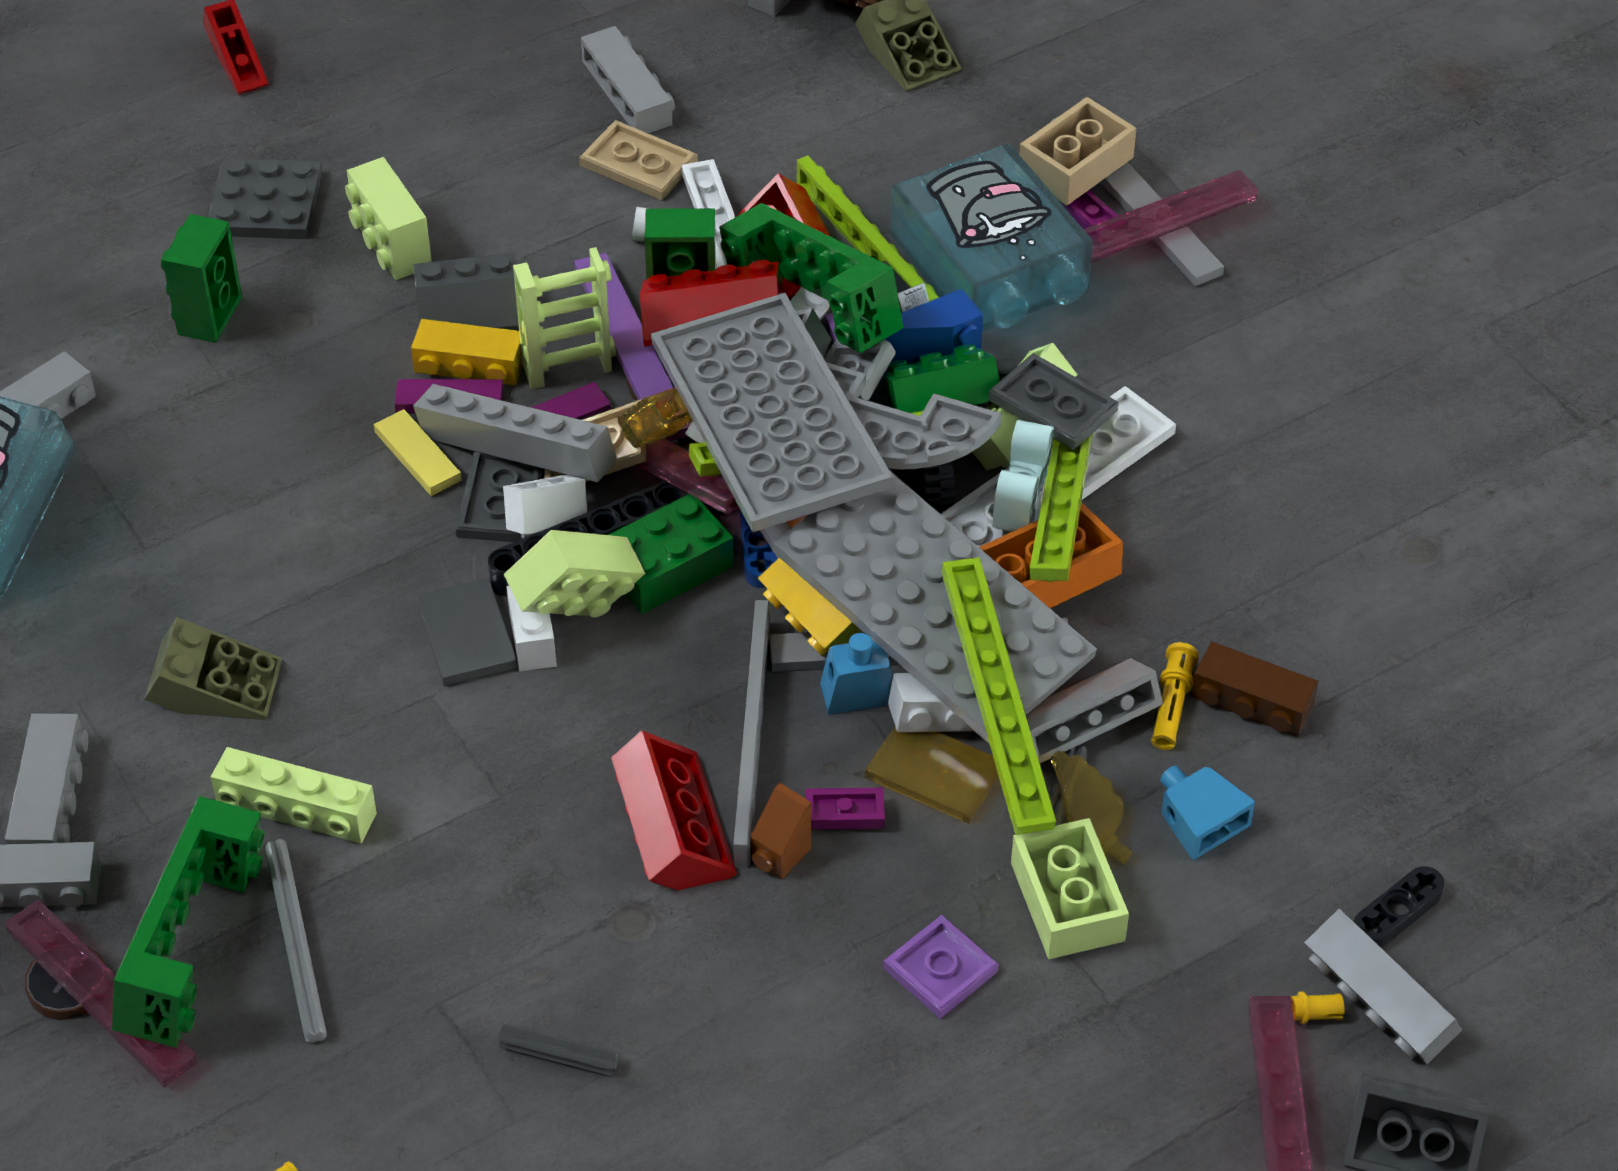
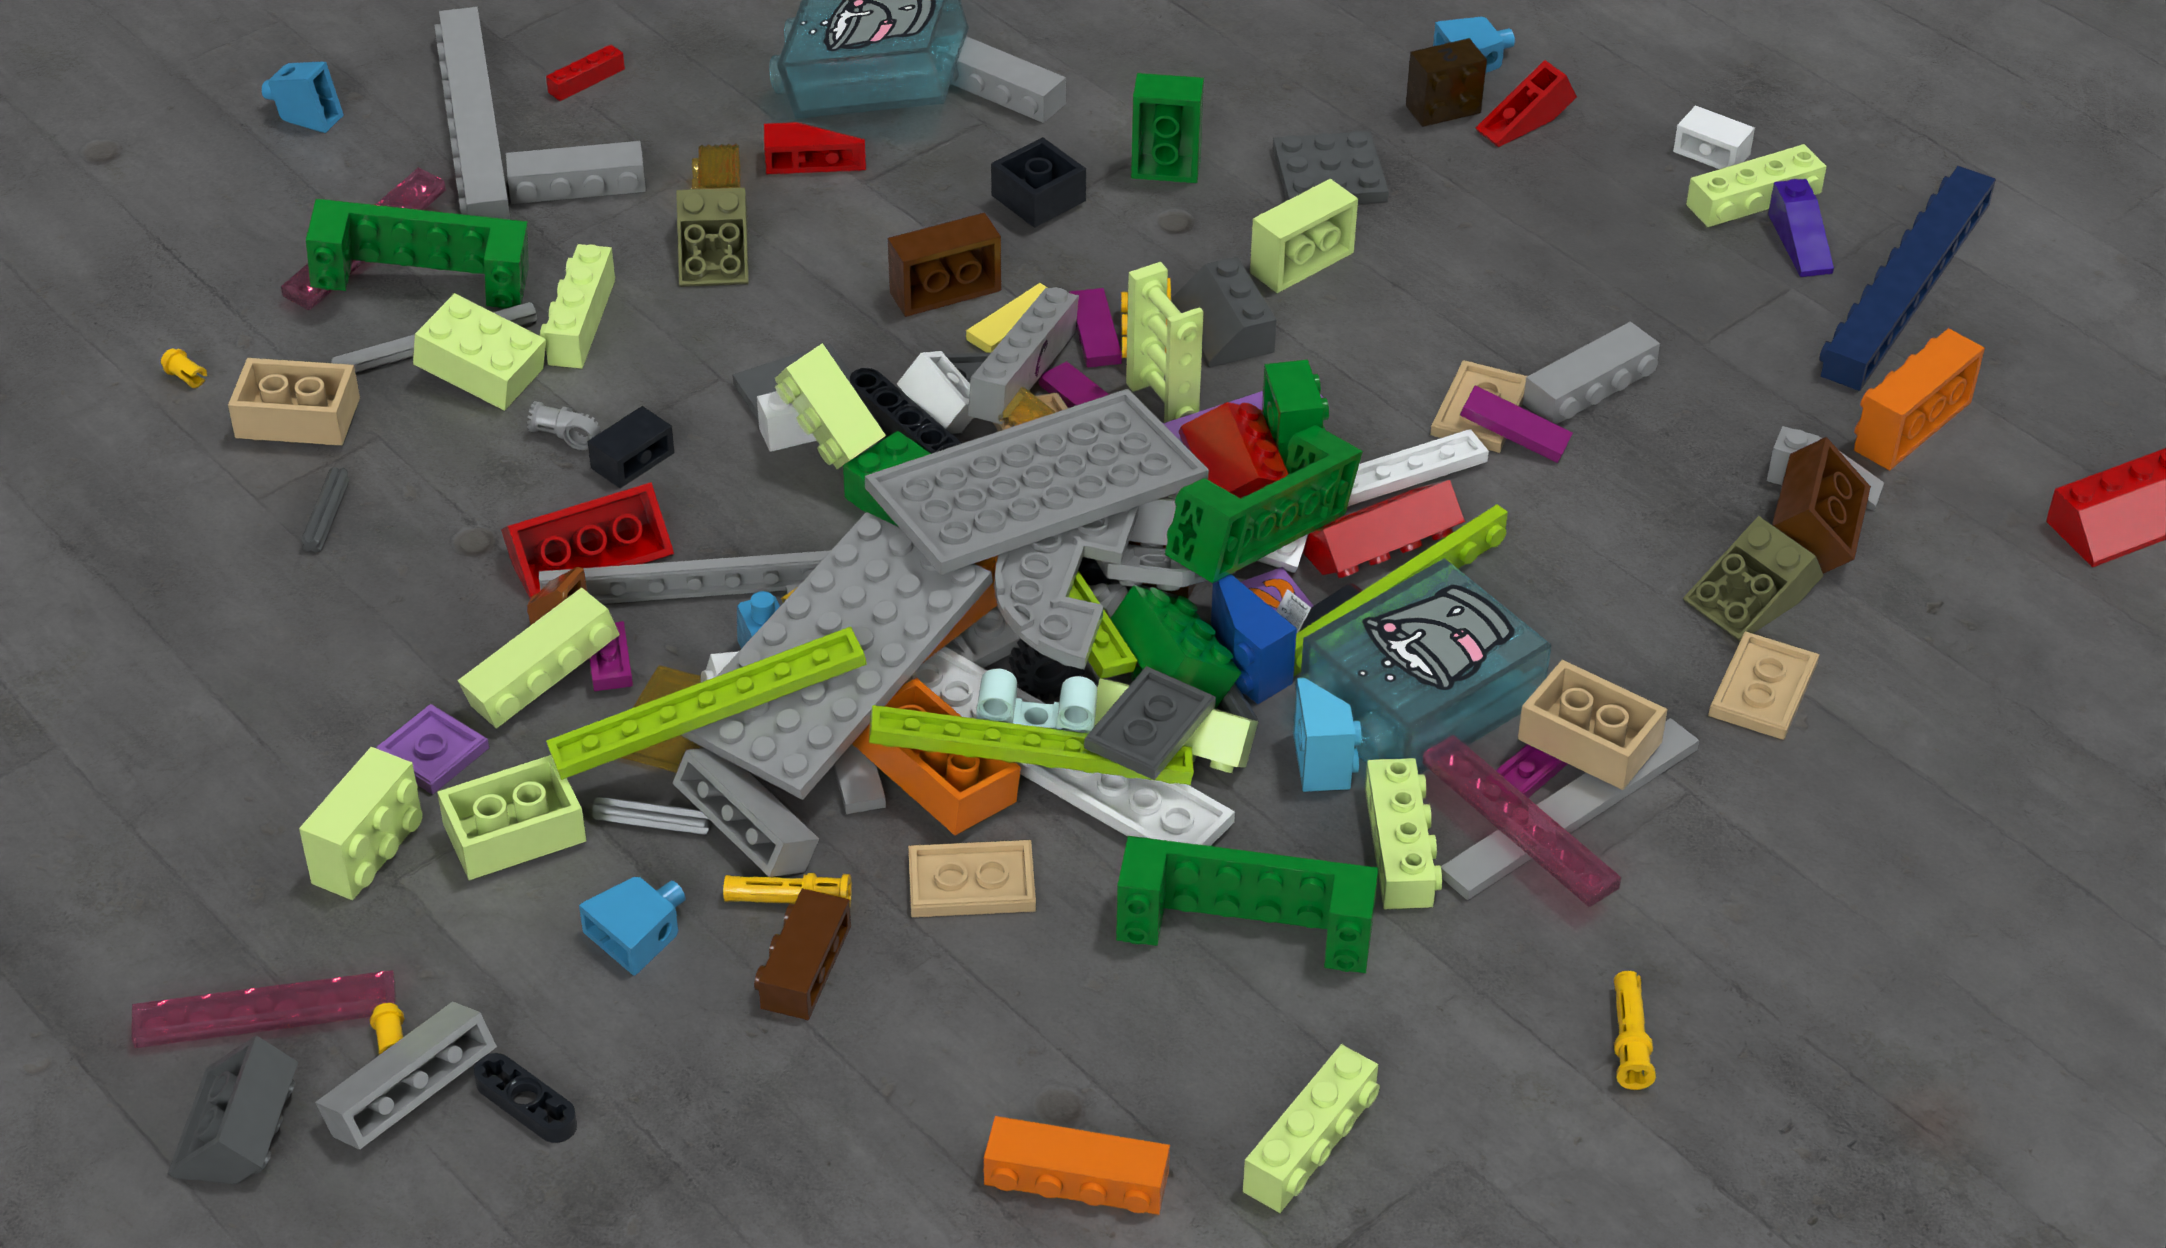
camera: 80 degrees right, 5 degrees down
(82, 582) = (810, 149): none -> red slope
(104, 660) = (717, 167): none -> clear yellow brick
(120, 68) = (1482, 34): none -> dark azure torso
(191, 85) = (1446, 82): none -> dark brown brick
(226, 397) = (1038, 182): none -> black brick
(343, 480) = (944, 264): none -> reddish brown brick
(357, 883) = (479, 351): none -> yellowish green brick
(388, 1062) = (294, 401): none -> tan brick
(480, 825) = (562, 423): none -> light grey connector
(537, 768) = (631, 447): none -> black brick
(639, 224) = (1372, 414): white tile -> none
(681, 137) = (1516, 424): none -> magenta tile
(863, 851) = (538, 657): none -> yellowish green brick
(1016, 65) = (1764, 685): none -> tan tile
(1058, 312) = (1324, 739): none -> medium azure slope
(1070, 1005) = (361, 823): none -> yellowish green brick
(1091, 796) = (630, 832): clear yellow animal -> none
(1159, 293) = (1401, 834): none -> yellowish green brick
(1166, 573) = (971, 878): none -> tan tile
(1225, 439) = (1247, 886): none -> green plate
(1332, 198) = (1632, 1043): none -> yellow pin
(1468, 393) = (1310, 1128): none -> yellowish green brick
(1496, 539) = (1076, 1165): none -> orange brick

